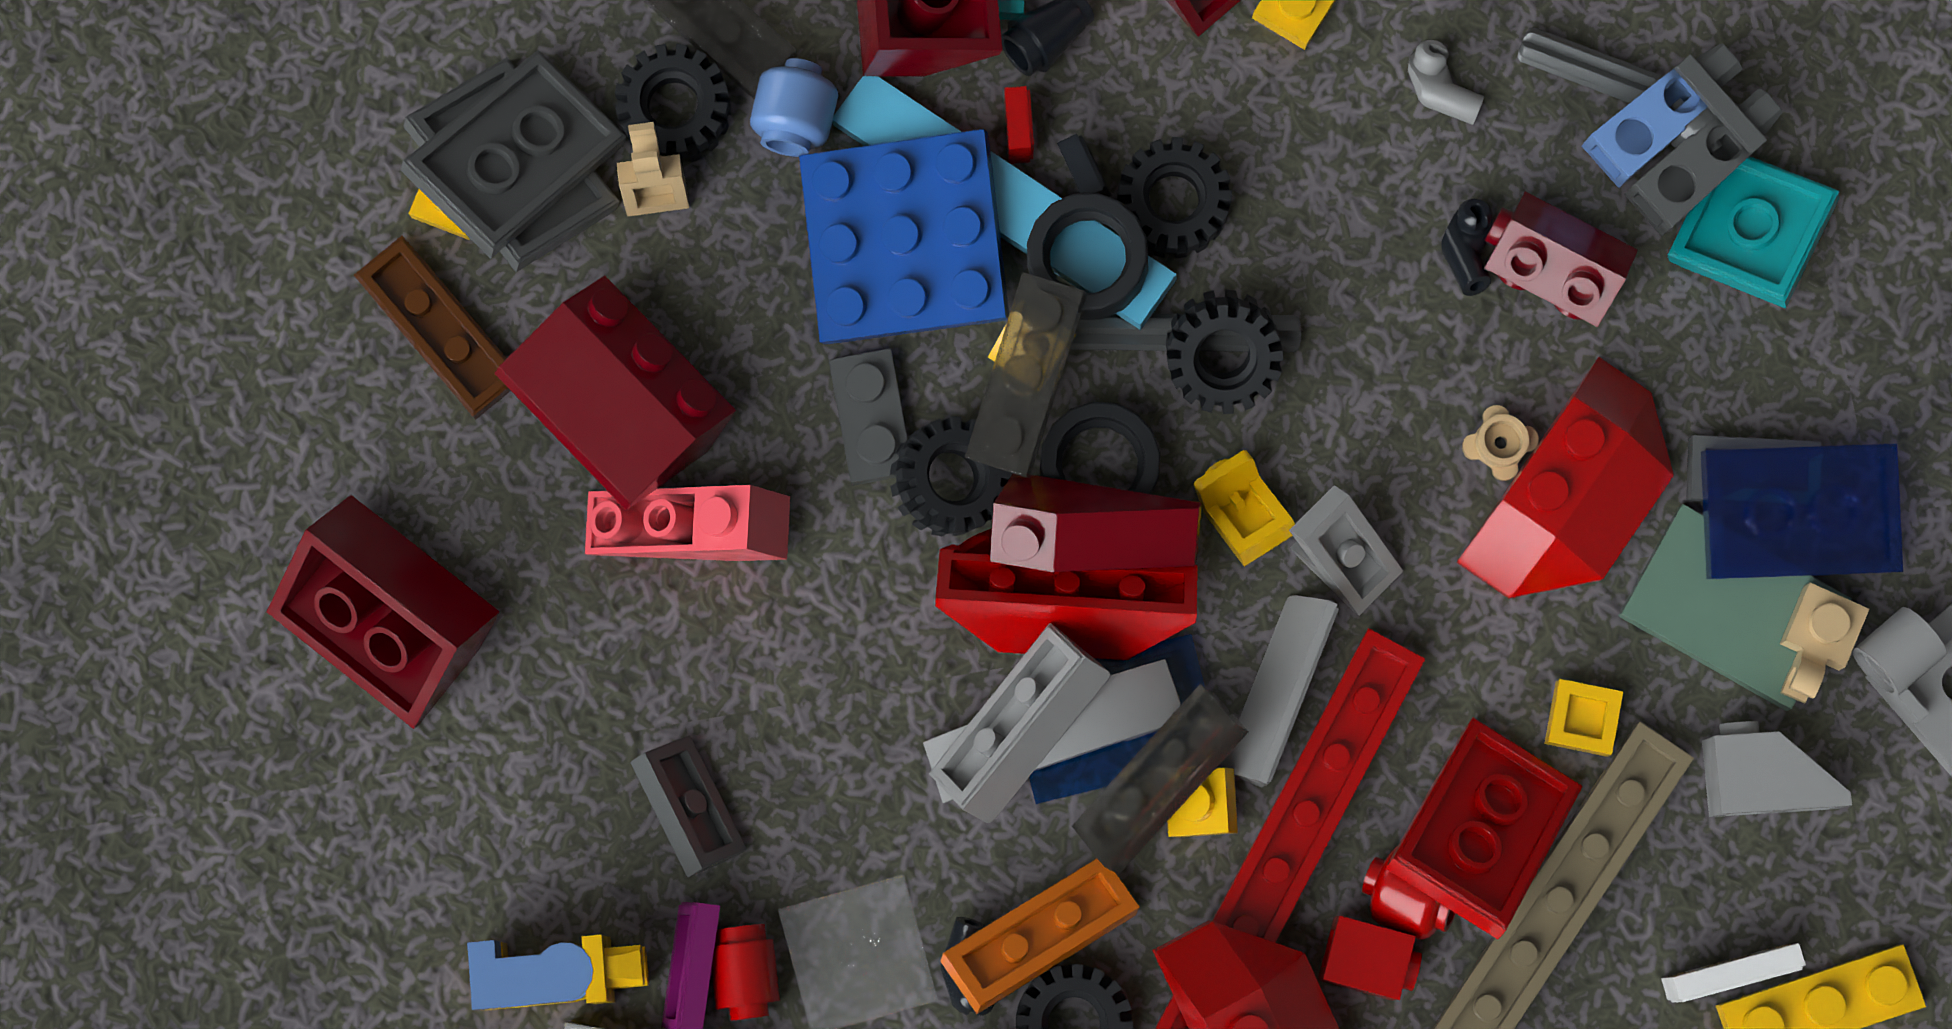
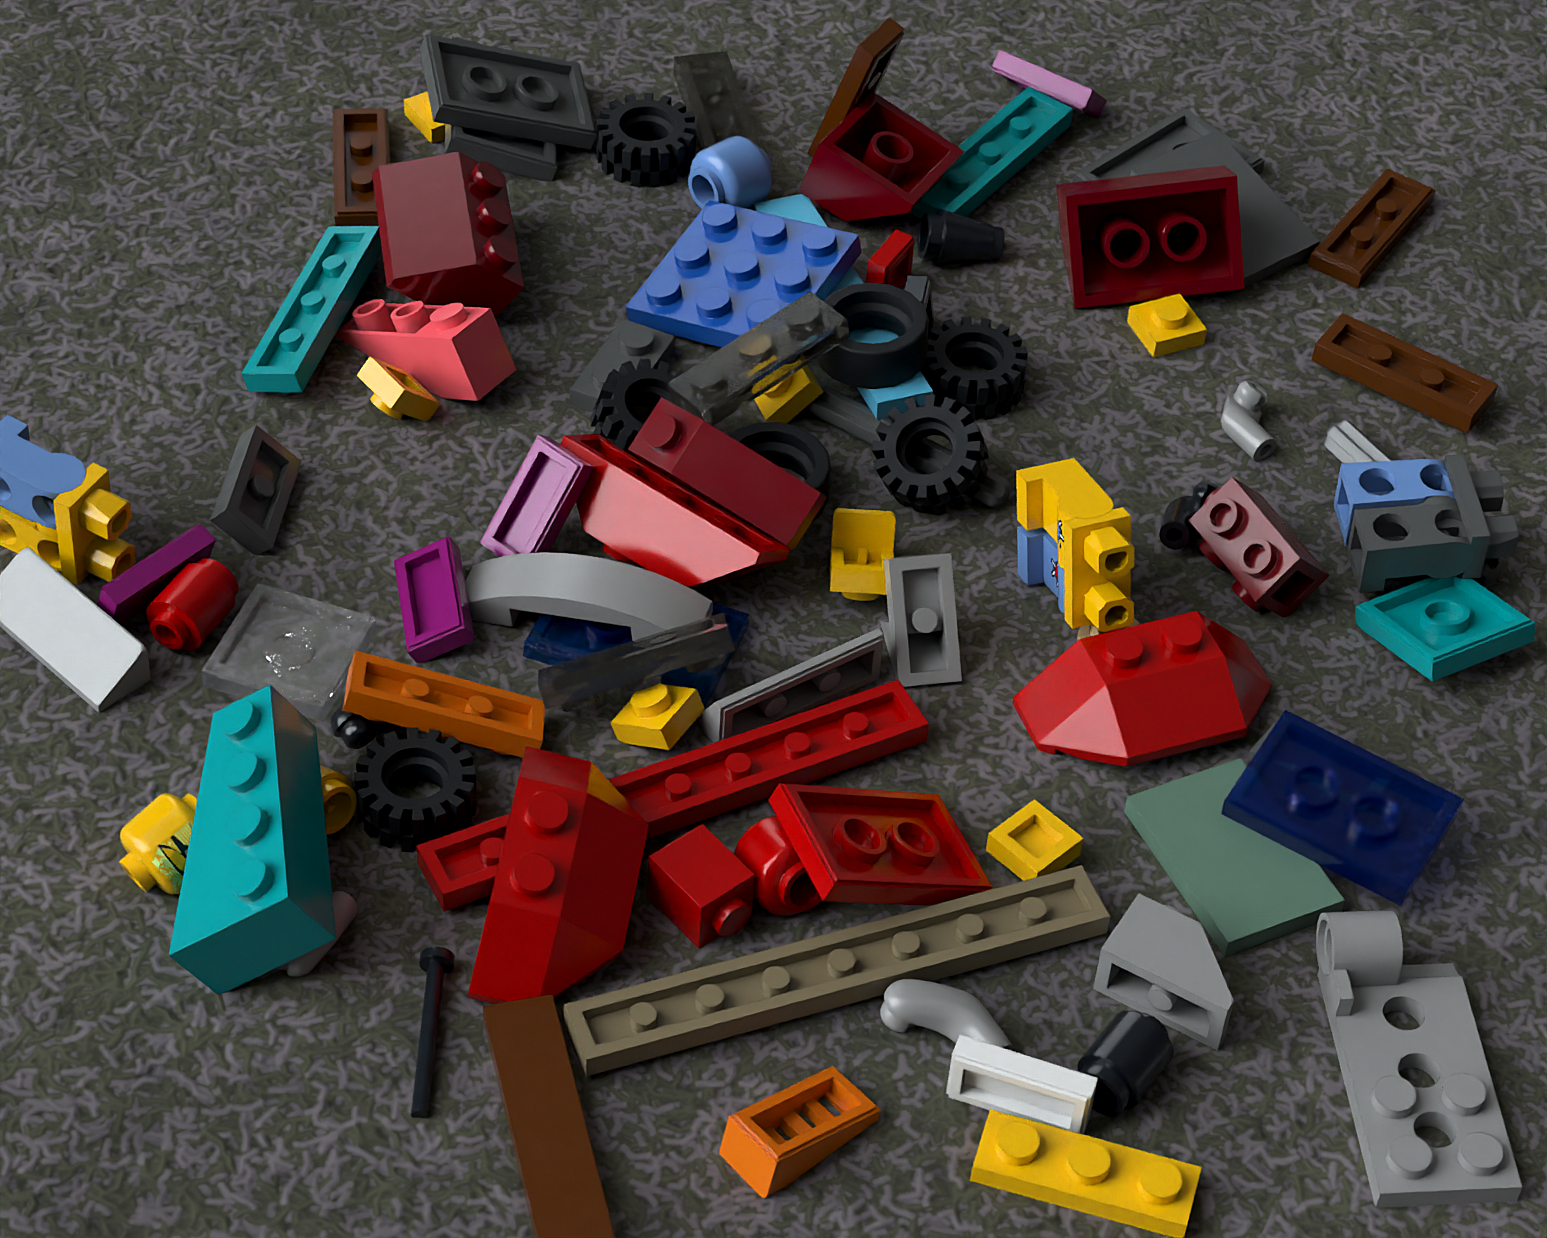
camera: 30 degrees right, 35 degrees down
(381, 610) = (157, 269): dark red slope -> none
(556, 551) = (313, 310): none -> teal plate
(651, 180) = (587, 158): tan plate -> none
(710, 598) = (397, 391): none -> plate
(926, 813) = (433, 600): none -> magenta tile
(946, 662) = (537, 500): none -> tile
(1019, 724) = (557, 560): light grey slope -> none
(1436, 390) = (1075, 544): none -> yellow hips
(1628, 934) = (940, 1009): none -> light grey arm
(1790, 890) = (1126, 1060): none -> black brick
(1822, 634) = (1289, 896): tan plate -> none

